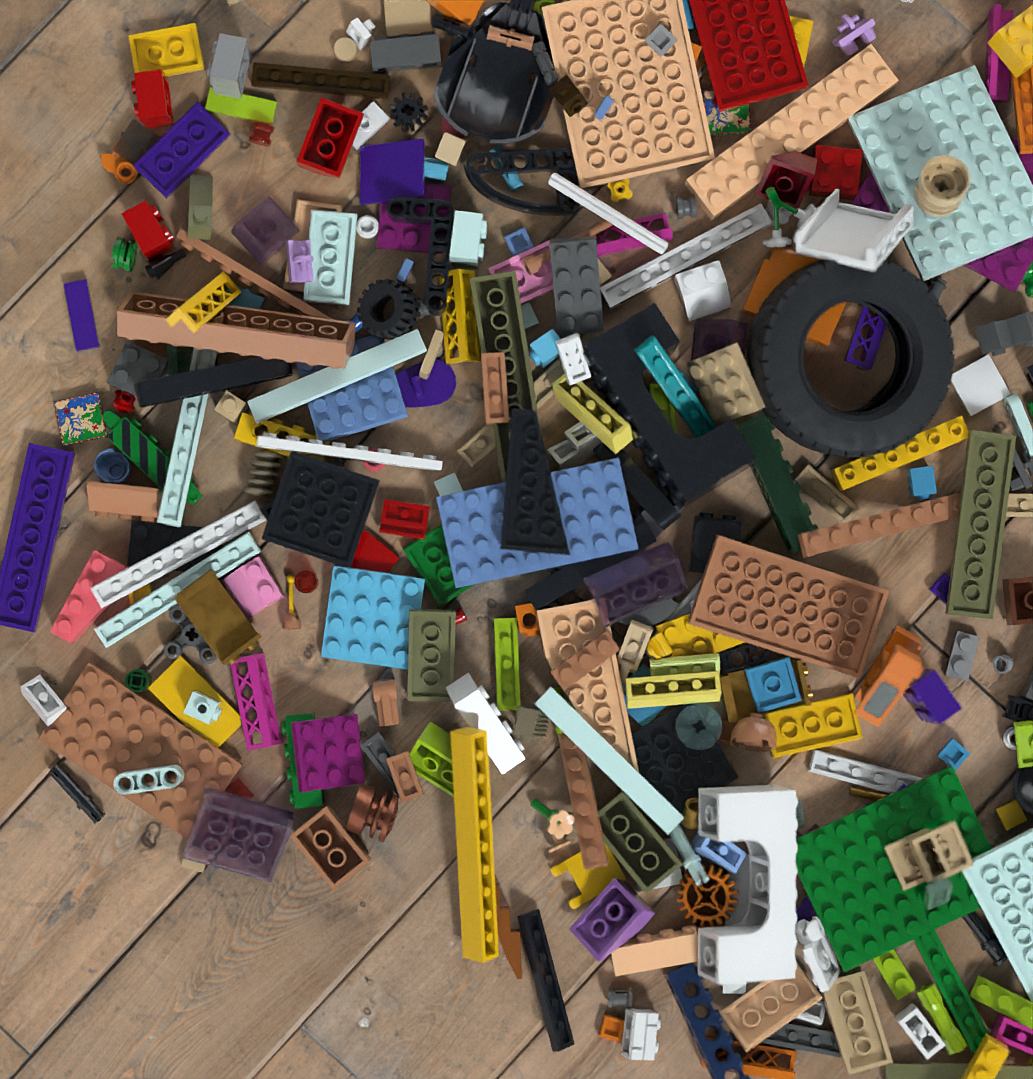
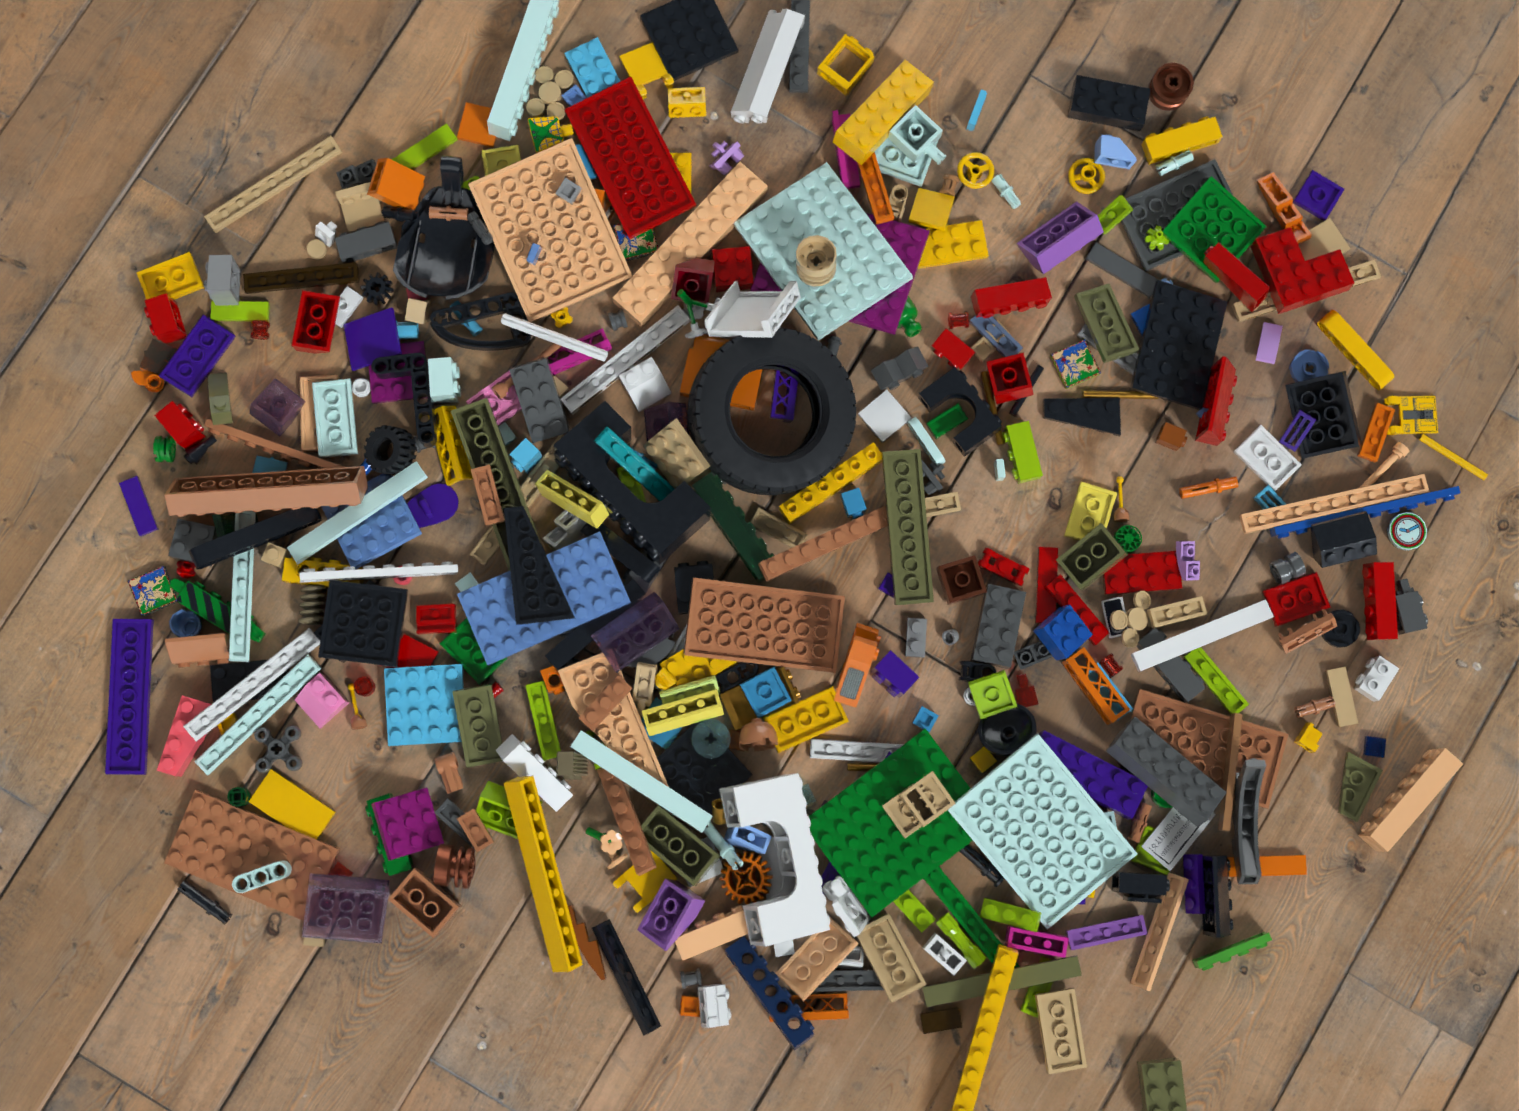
camera: 20 degrees left, 5 degrees down
(43, 699) = (162, 829): white slope -> none
(203, 707) = (297, 808): light aqua brick -> none
(205, 297) = (235, 468): yellow fence -> none
(217, 618) = (294, 730): pearl gold panel -> none
(263, 704) = (345, 789): dark pink fence -> none
(299, 261) = (309, 425): lavender hips -> none
(405, 271) = (398, 417): medium blue tile -> none
(431, 355) = (432, 480): tan tile -> none
(518, 241) = (487, 375): medium blue tile -> none
(568, 96) = (503, 250): dark brown bracket -> none
(572, 359) = (547, 459): white plate -> none
(937, 892) = (931, 833): sand green plate -> none

